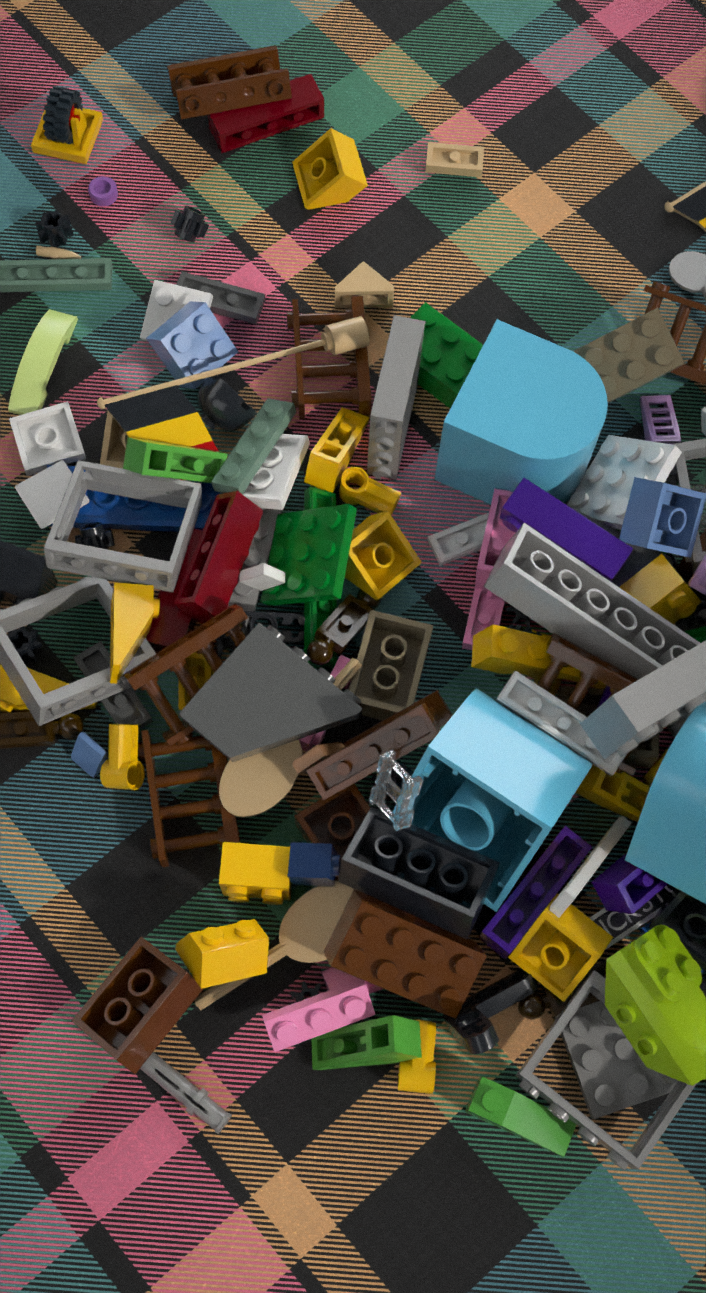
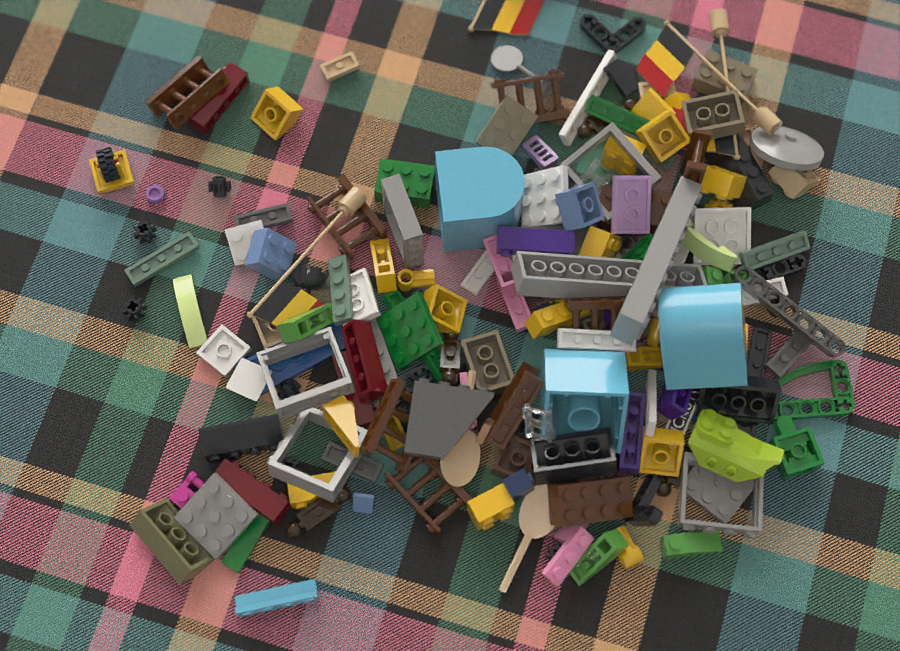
camera: 30 degrees left, 0 degrees up
(56, 253) = (155, 245): tan helmet -> none
(122, 767) = (385, 497): yellow piece -> none
(137, 1005) = (475, 607): reddish brown brick -> none
(185, 1092) = (498, 633): light grey pin -> none
(225, 953) = (503, 555): yellow slope -> none
(262, 577) = (393, 356): white tile -> none
(367, 283) = (340, 165): tan slope -> none

